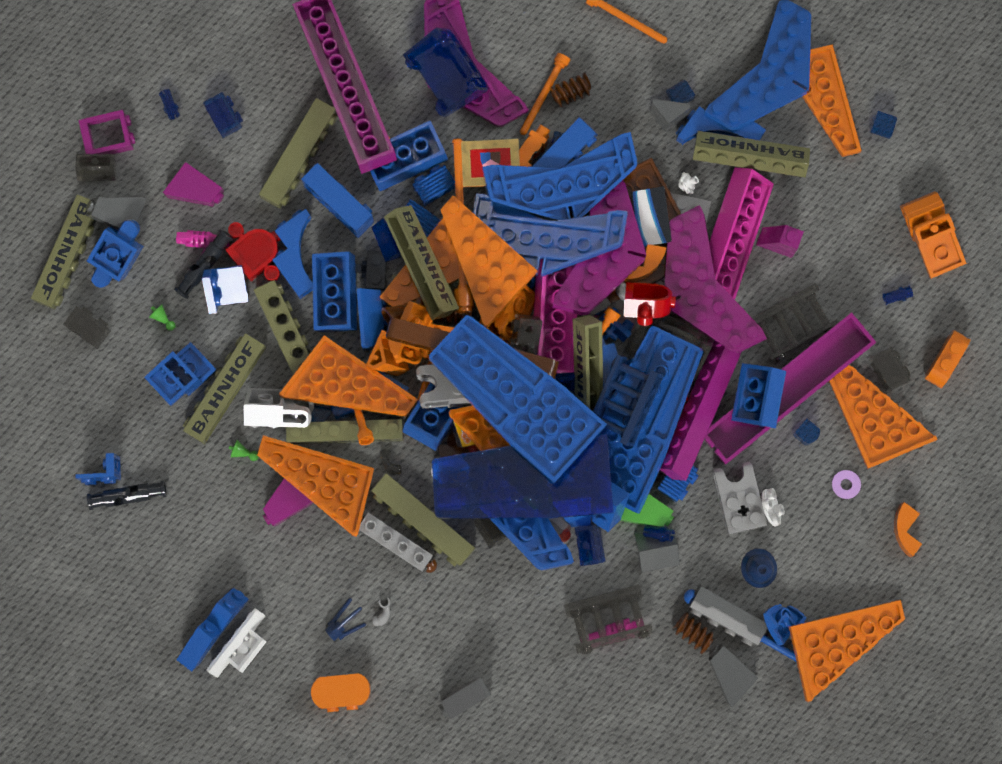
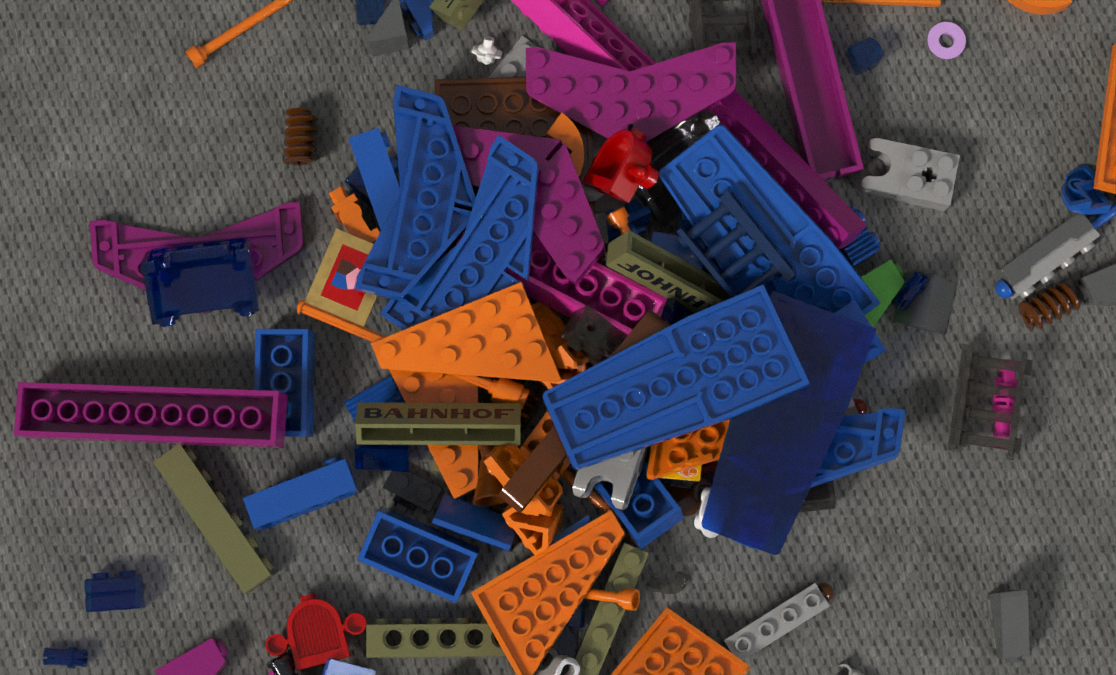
camera: 70 degrees left, 0 degrees up
(290, 261) = (351, 594): blue arch -> none
(423, 520) = (761, 575): olive brick -> none
(434, 184) = (338, 364): blue brick -> none
(561, 62) = (257, 134): orange piece -> none
(590, 544) = (887, 381): clear blue brick -> none
(652, 215) = (509, 111): sticker -> none
(758, 395) = (801, 87): blue slope -> none
(759, 568) = (1001, 192): dark blue hat -> none
(771, 507) = (939, 140): white dish -> none

